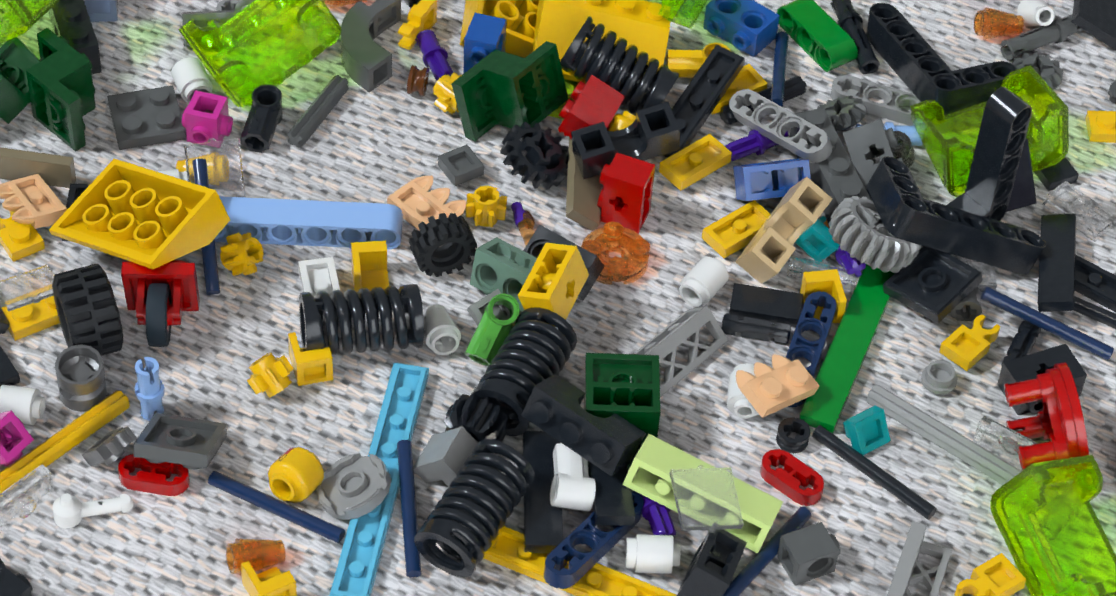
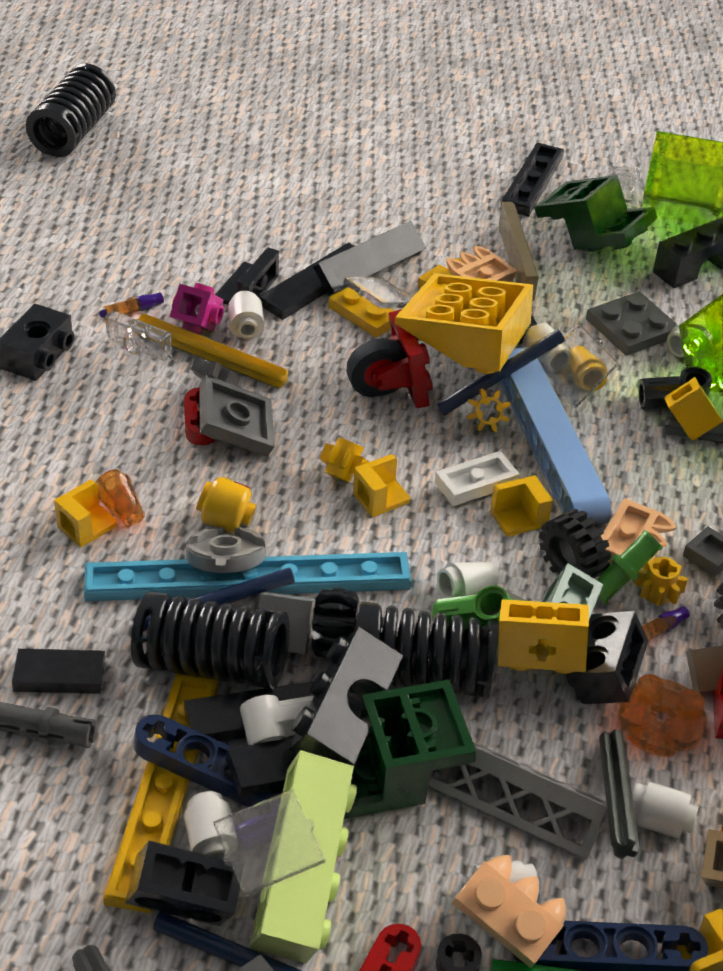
camera: 75 degrees right, 5 degrees down
(61, 89) = (615, 252): dark green bracket -> none
(69, 510) = (142, 375): white piece -> none
(80, 377) = (284, 337): flat silver wheel -> none
(88, 309) = (348, 313): black tyre -> none
(149, 388) = (281, 376): light blue pin -> none
(207, 117) = (643, 349): dark pink brick -> none
(276, 506) = (189, 510): dark blue bar -> none
(299, 112) = (693, 409): none -> yellow panel
(355, 305) = (435, 502): black piece -> none
(473, 213) = (627, 565): none -> bright green pin
(690, 296) = (618, 795): none -> pearl dark grey axle
(756, 328) = (619, 886): black axle -> none
(766, 304) = (665, 886): black tile -> none

